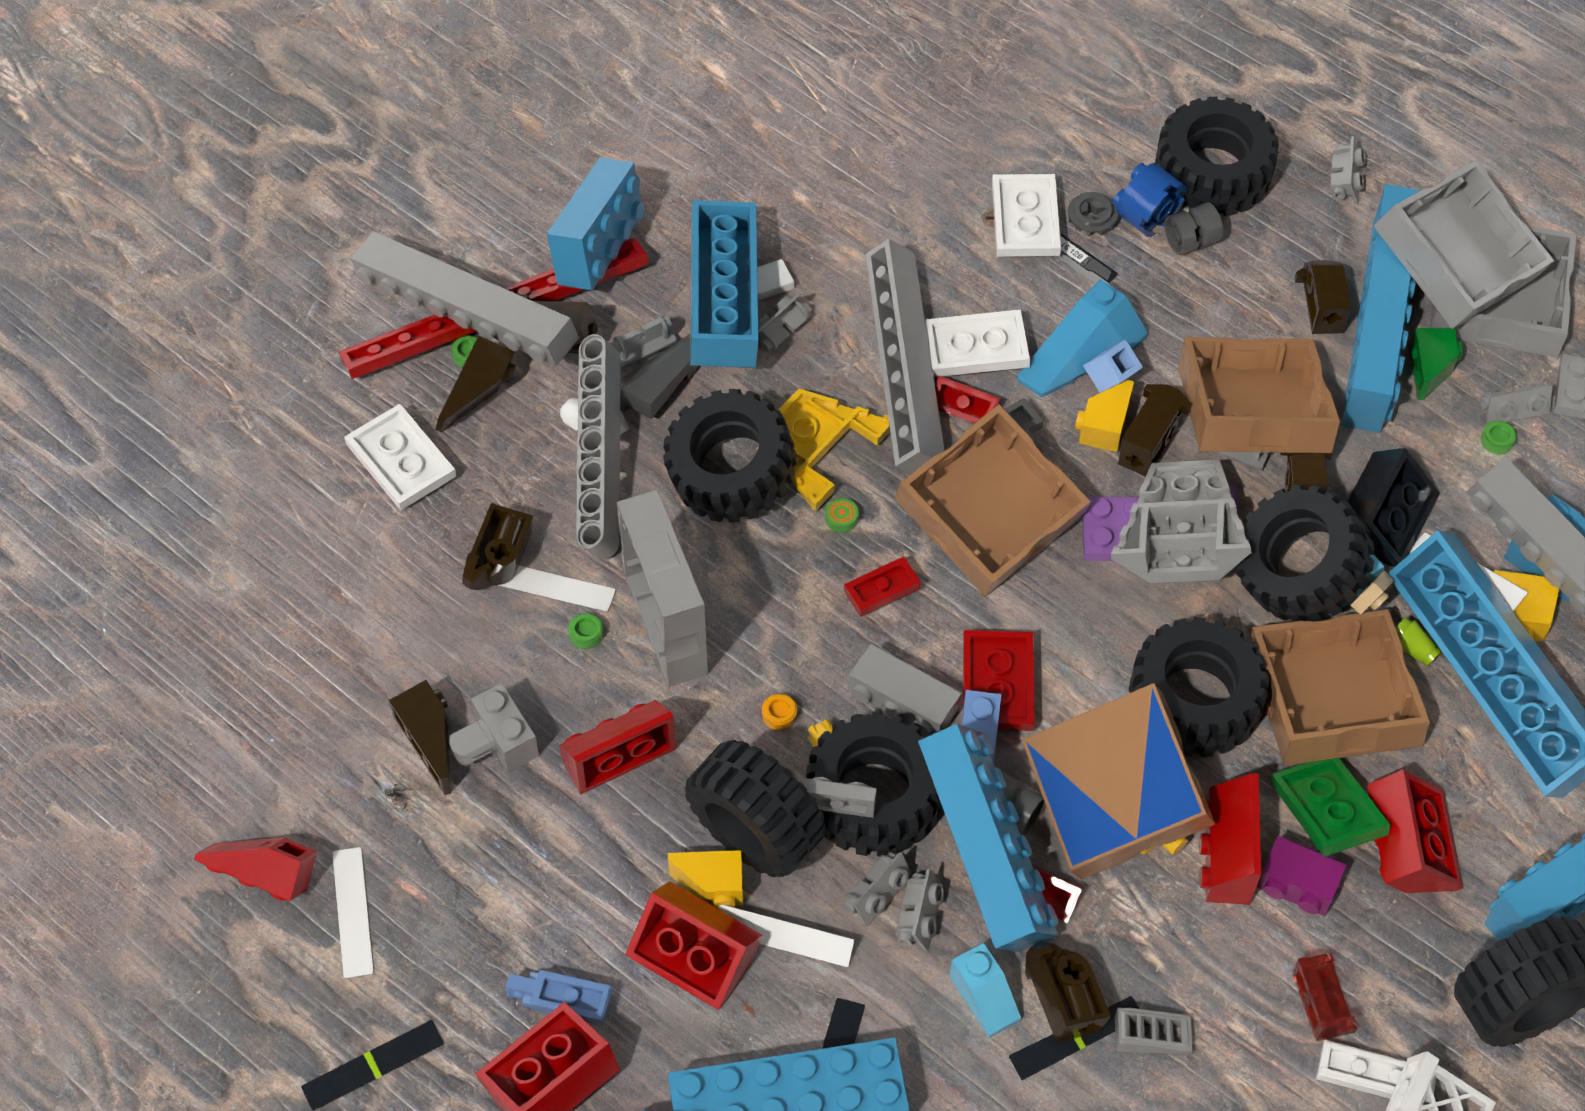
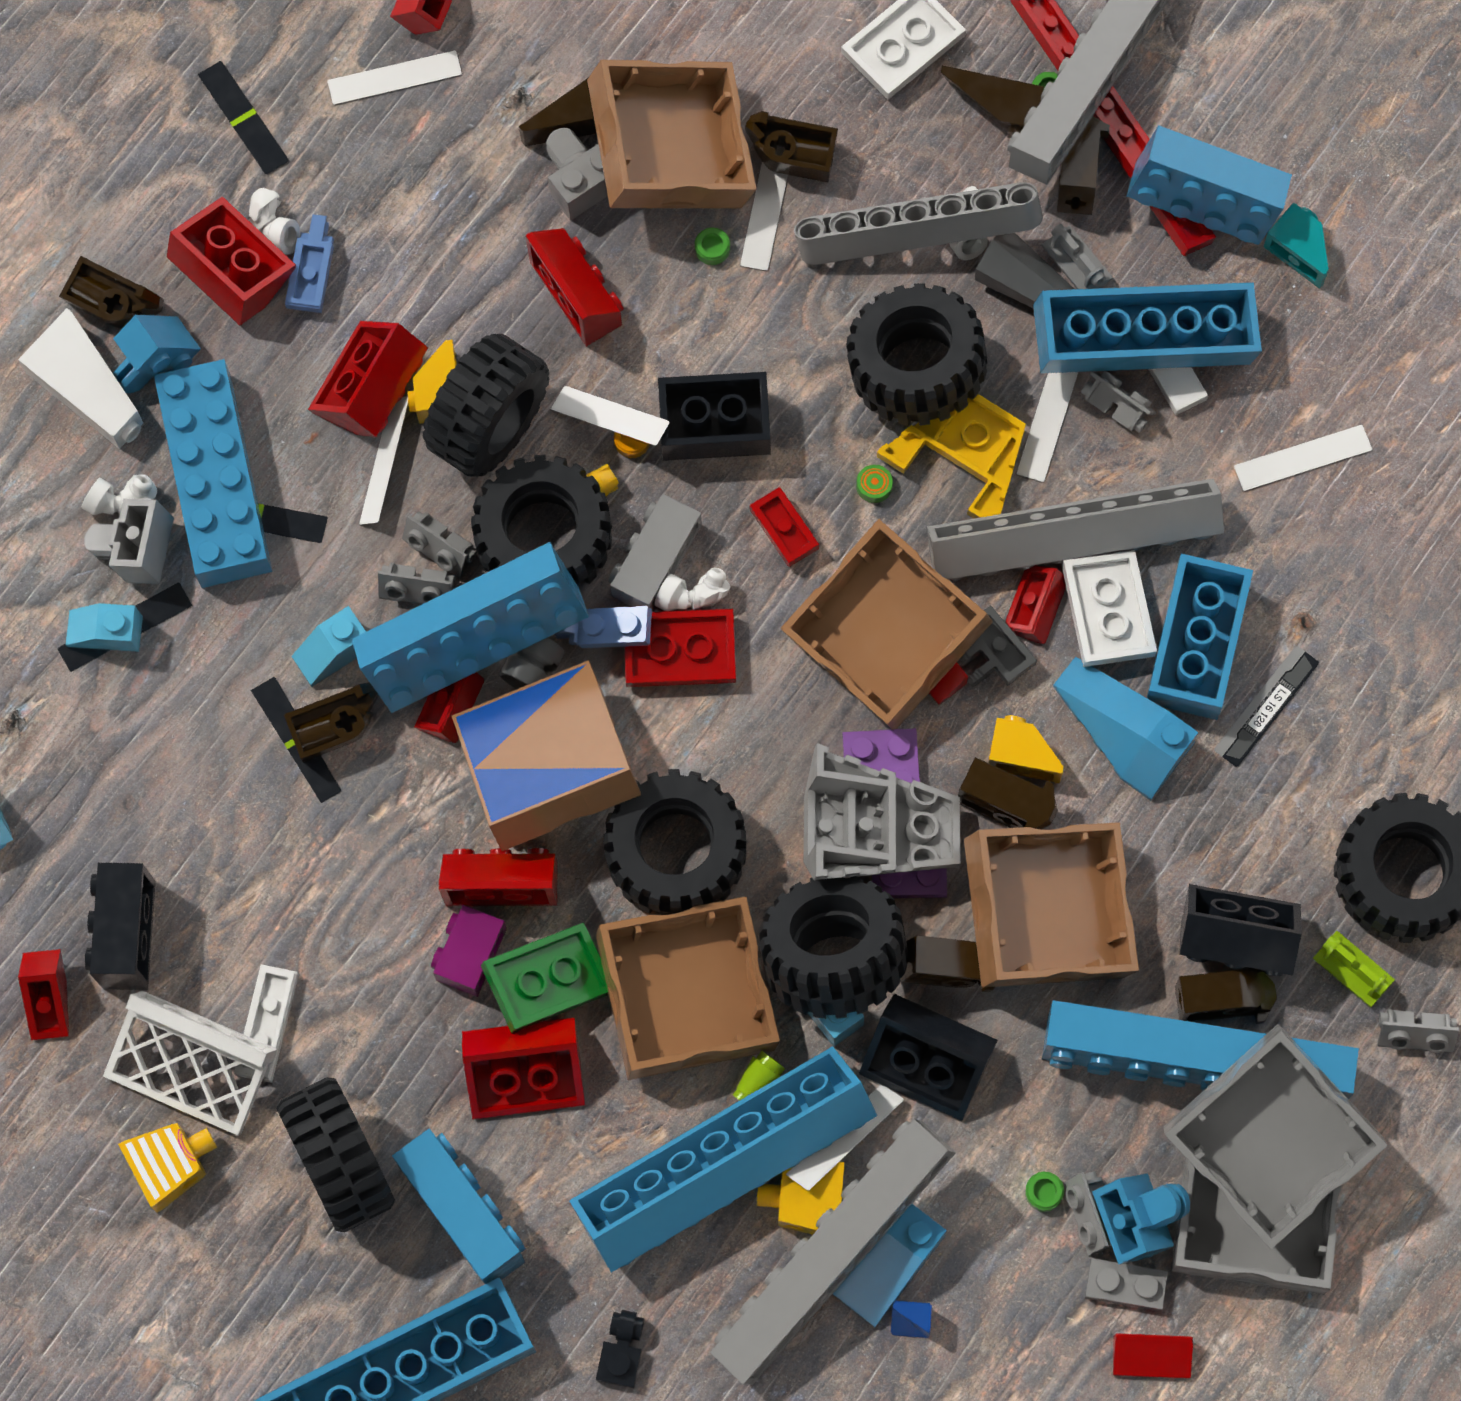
camera: 90 degrees right, 15 degrees up
(475, 640) = (670, 134): none -> medium nougat tile
(489, 1041) = (280, 231): none -> white arm
(659, 176) = (1300, 243): none -> teal slope
(663, 588) = (729, 294): light grey tile -> none
(770, 630) = (715, 416): none -> black brick
(770, 701) = (610, 415): none -> white sticker
(789, 380) = (1046, 425): none -> white sticker
(842, 204) = (1303, 457): none -> white sticker
(842, 798) = (496, 493): light grey plate -> none
(943, 652) = (708, 592): none -> white arm
(1009, 276) = (1199, 636): none -> dark azure brick
(1026, 215) = (1300, 656): white plate -> none
(1099, 205) = (1324, 719): dark grey gear -> none
(1112, 366) = (1084, 752): light blue brick -> none
(1142, 1017) = (298, 775): light grey slope -> none
(1149, 198) = (1329, 789): blue brick -> none
(1193, 228) = (1299, 843): dark grey wheel -> none
(1275, 266) = (1240, 930): none -> black brick
(1297, 206) = (1353, 968): none -> lime hinge
(1323, 997) = (340, 972): clear red hinge -> none
(1374, 594) = (792, 1022): tan plate -> none
(1433, 358) = (1138, 1117): green slope -> none
(1524, 360) = (1139, 1215): none -> dark azure brick

